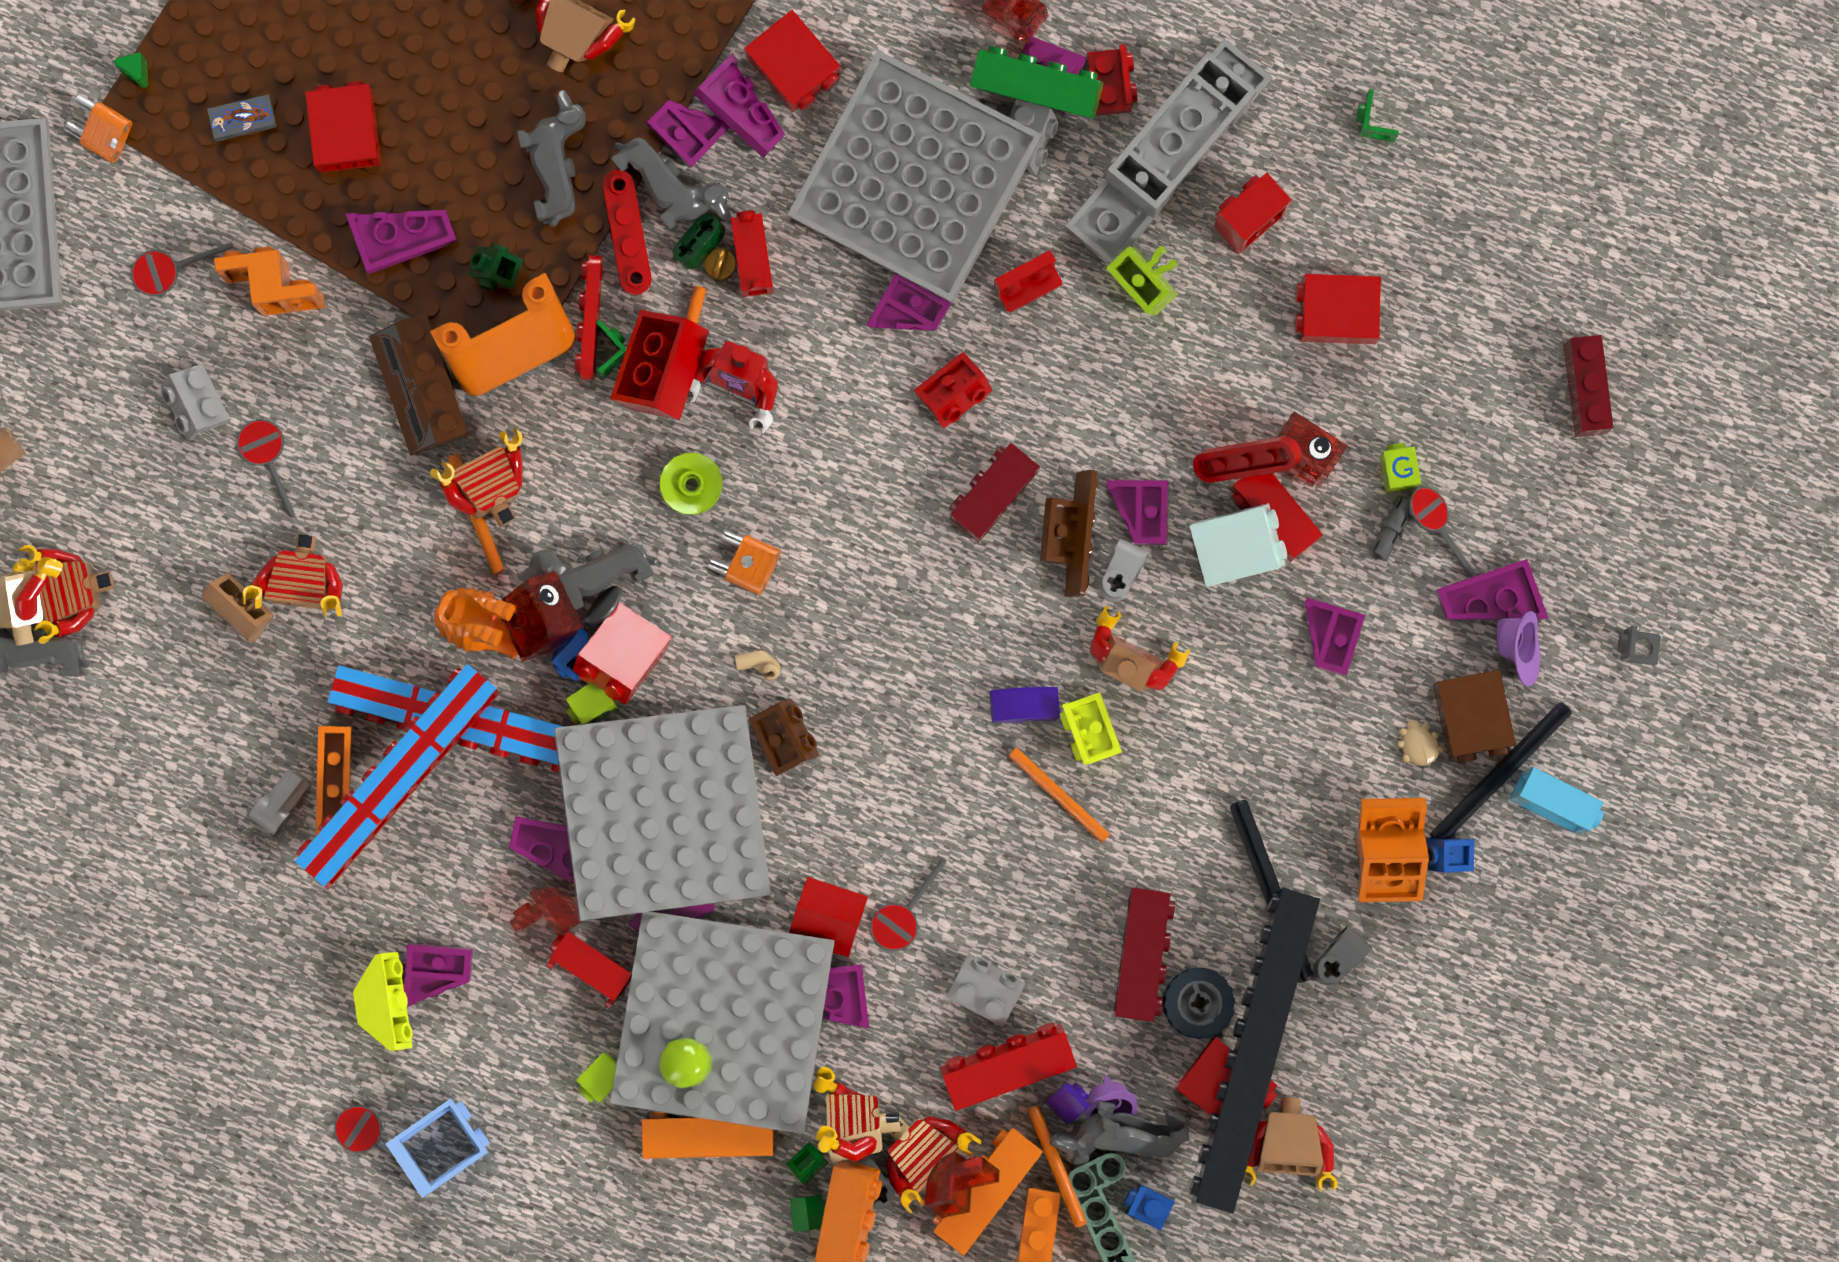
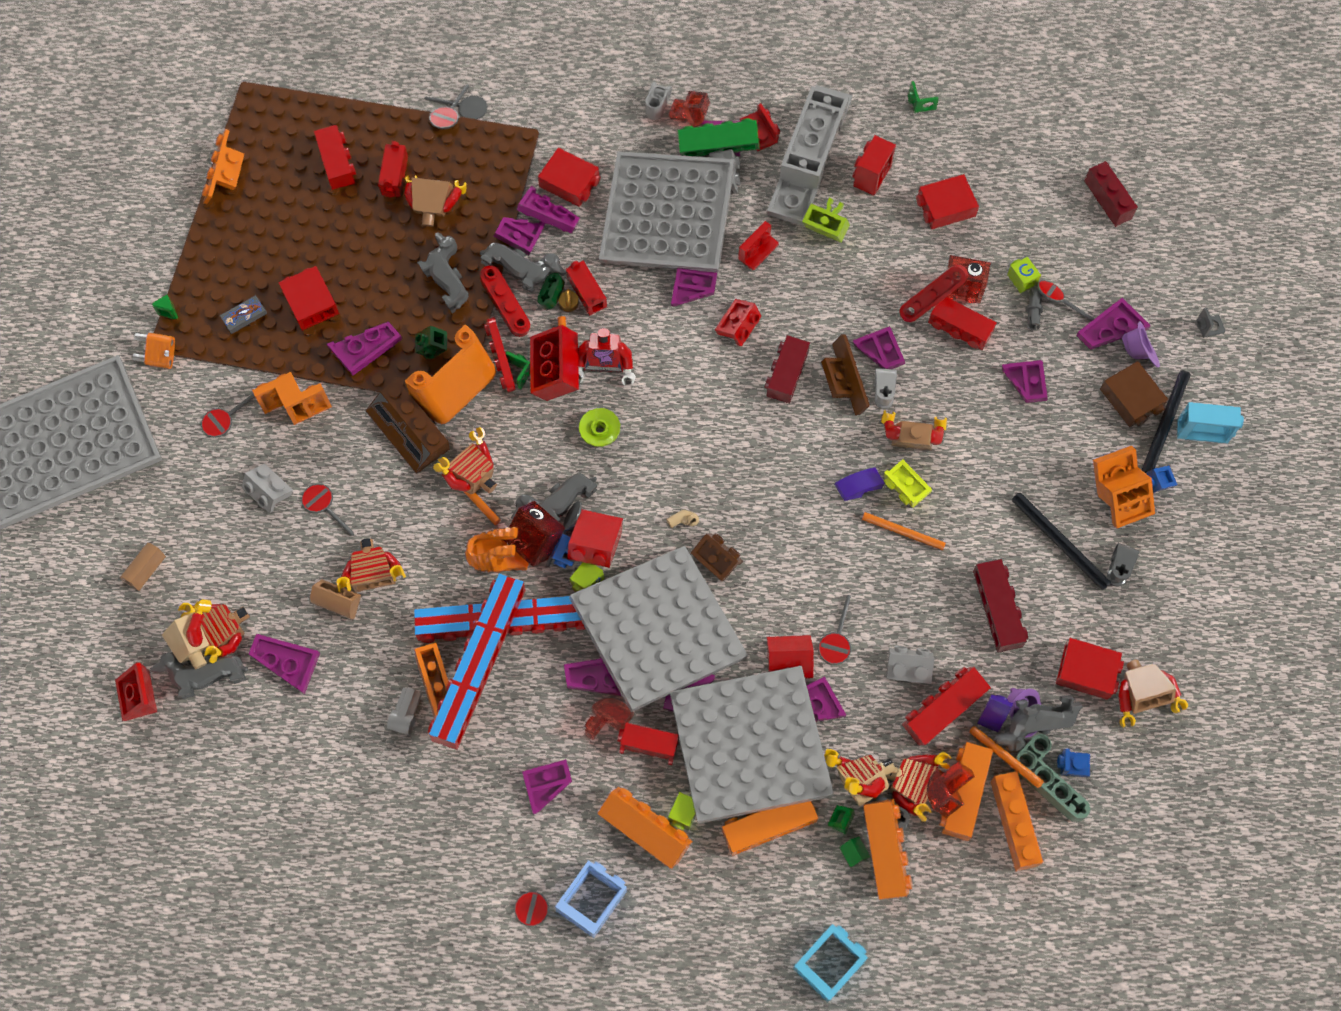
camera: 15 degrees left, 15 degrees down
(144, 669) = (287, 660): none -> magenta wing
(383, 1003) = (519, 814): neon yellow slope -> none
(541, 1080) = (645, 827): none -> orange brick
(685, 1063) = (737, 774): lime hair -> none
(751, 564) = (655, 461): orange piece -> none
(1193, 1021) = (1049, 635): black wheel -> none
(1238, 544) = (949, 344): light aqua brick -> none
(1255, 1050) = (1100, 637): black brick -> none
(1419, 744) = (1108, 424): tan piece -> none

